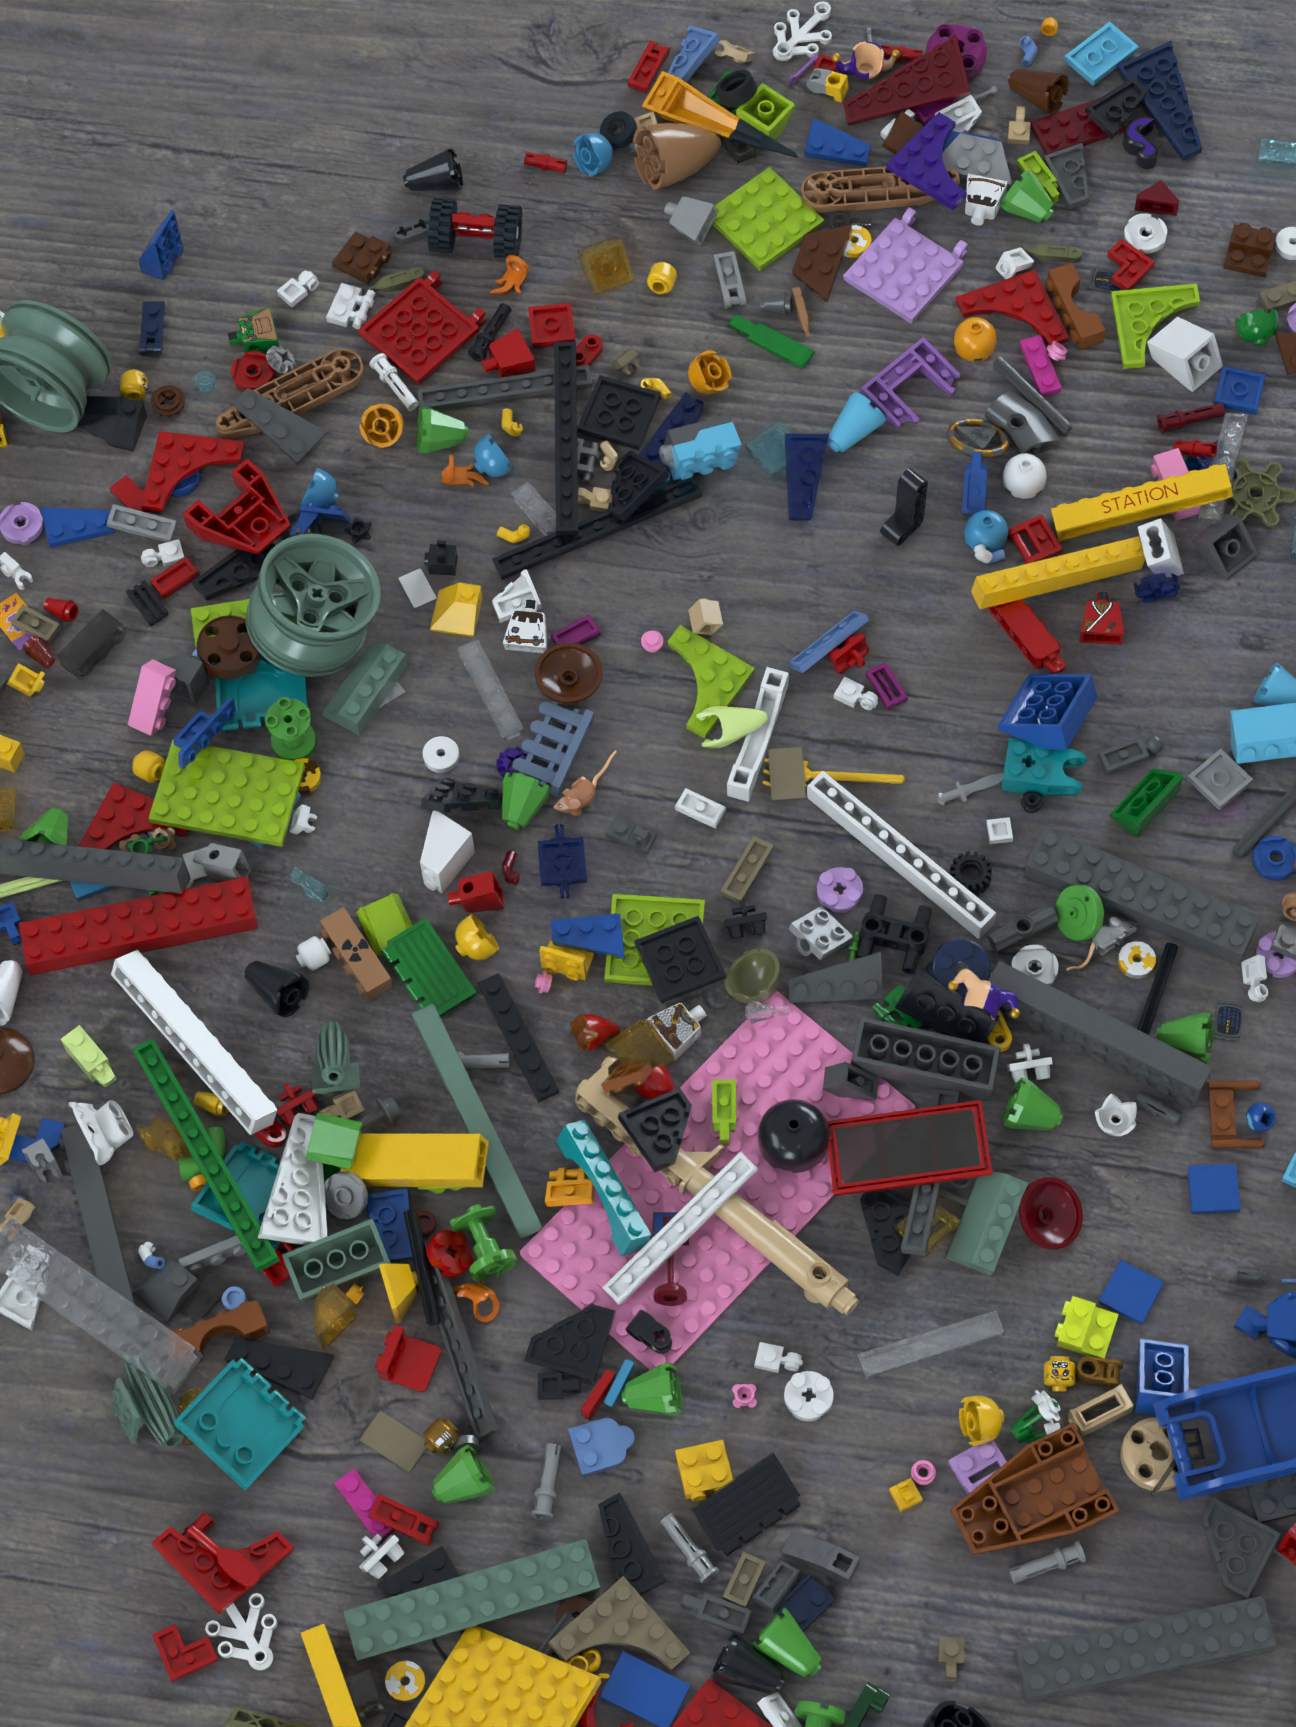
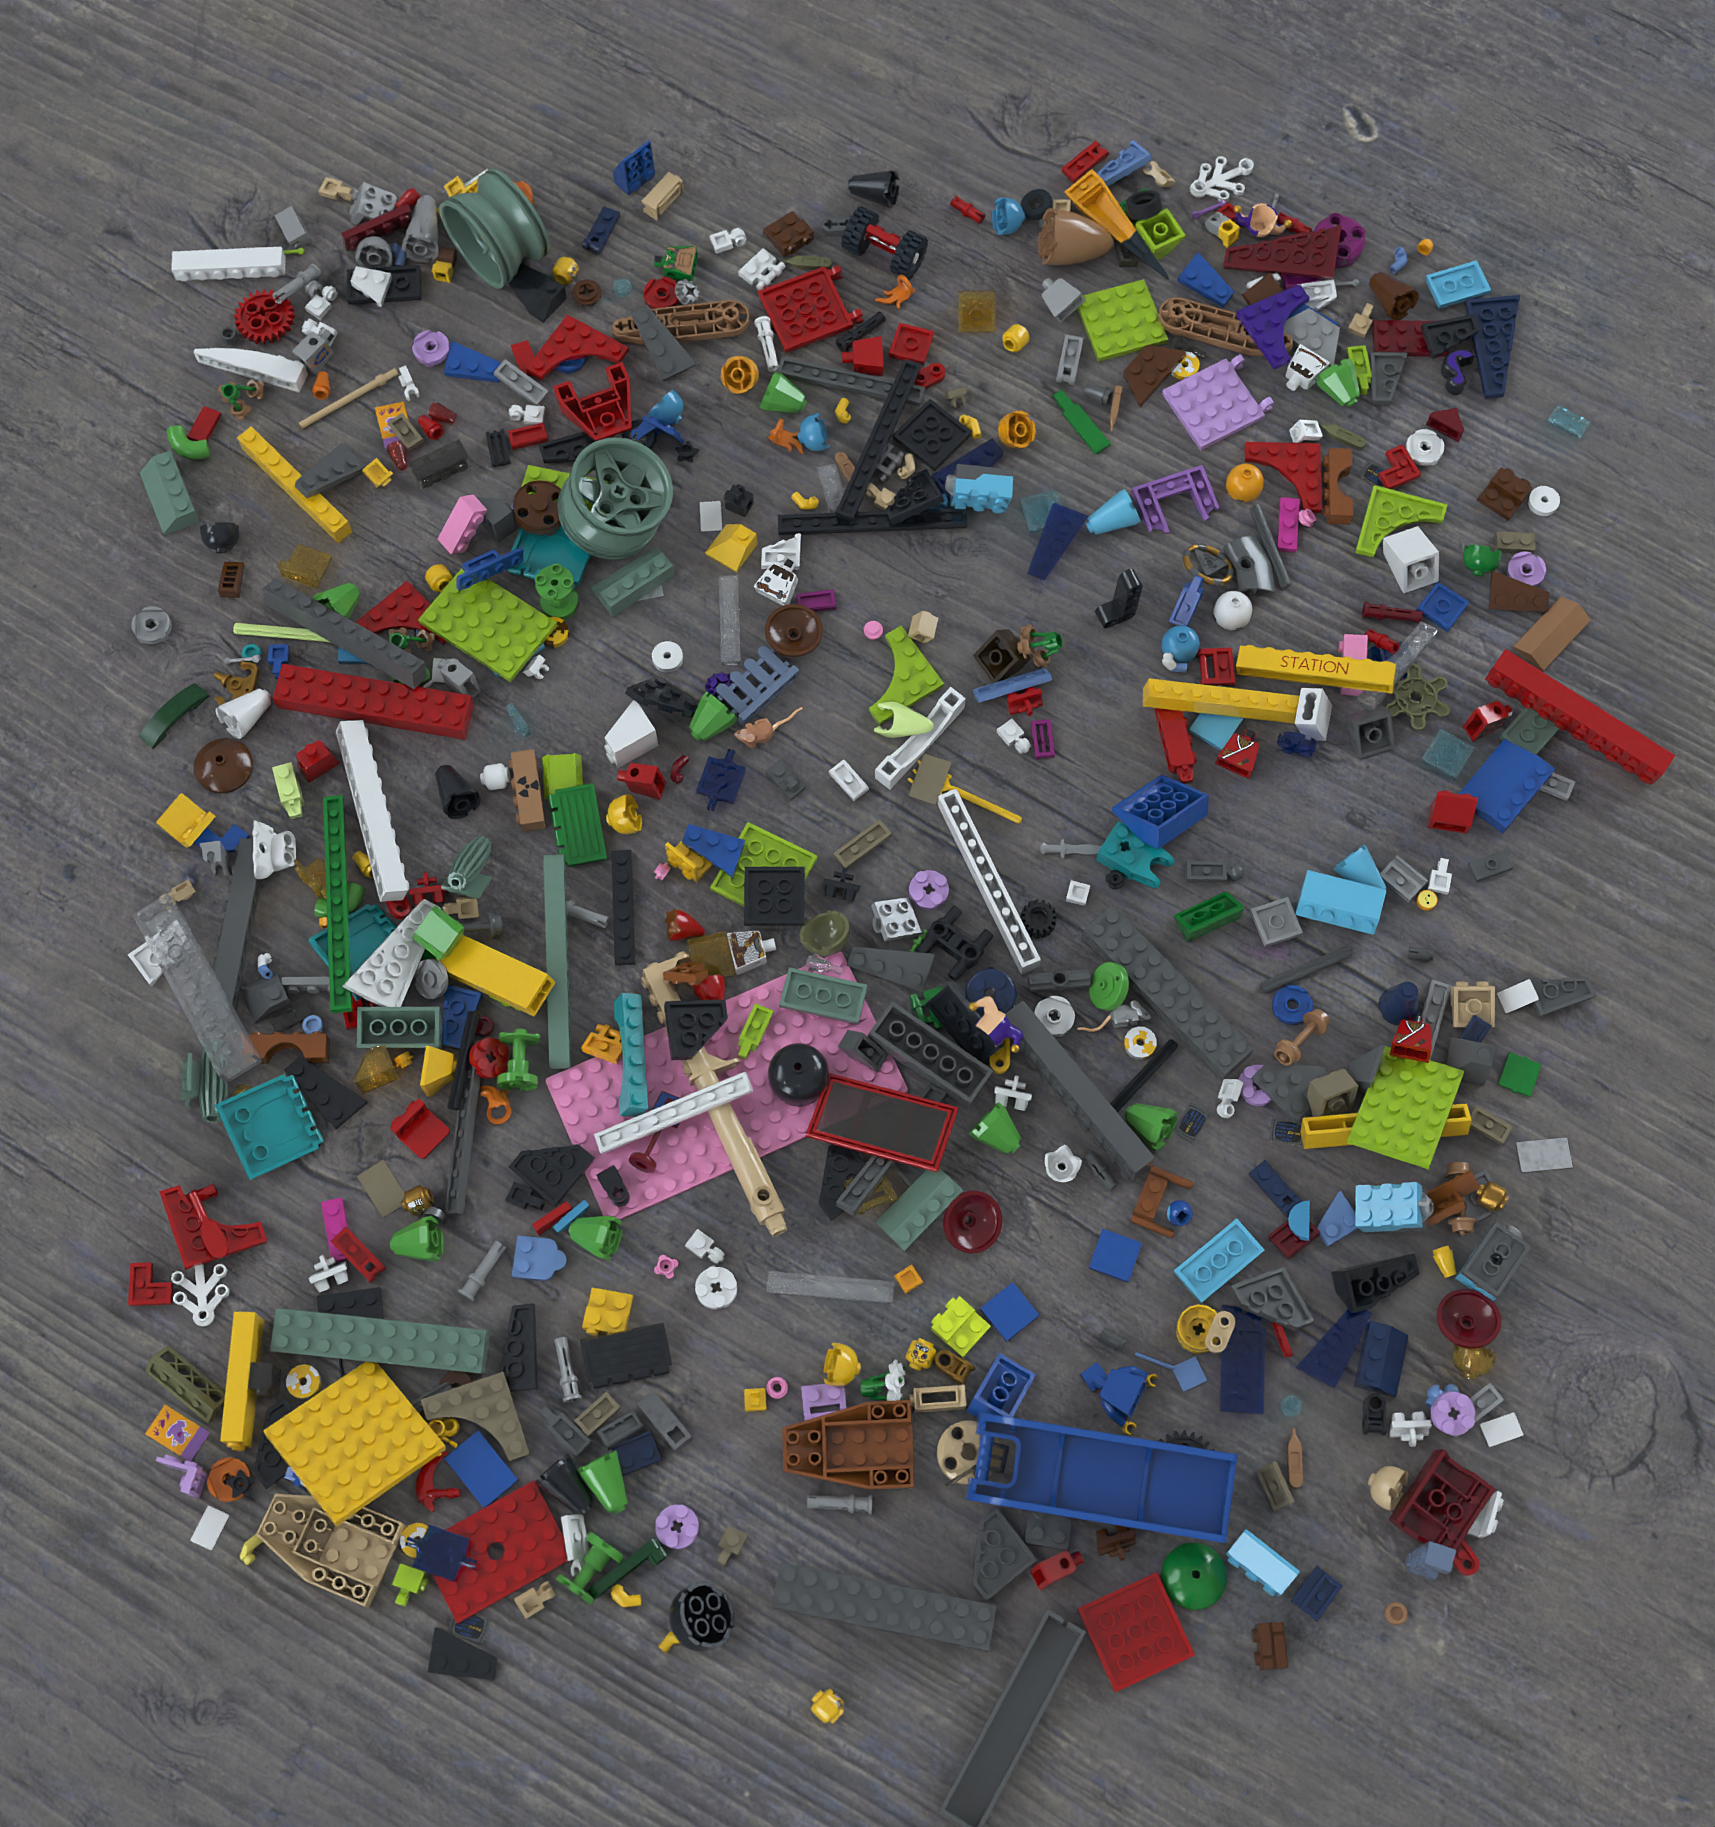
camera: 20 degrees right, 5 degrees up
(67, 589) = (441, 413): none -> clear red cone
(104, 1011) = (315, 760): none -> red torso
(204, 266) = (662, 195): none -> tan window
(540, 480) = (844, 464): none -> medium nougat piece
(781, 1043) = (823, 996): none -> sand green plate
(803, 615) = (1000, 656): none -> dark brown slope
(852, 579) = (1052, 642): none -> plant
(885, 1647) = (688, 1531): none -> lavender plate
(1009, 1302) = (908, 1279): none -> light orange tile
(1063, 605) = (1215, 728): none -> medium azure tile

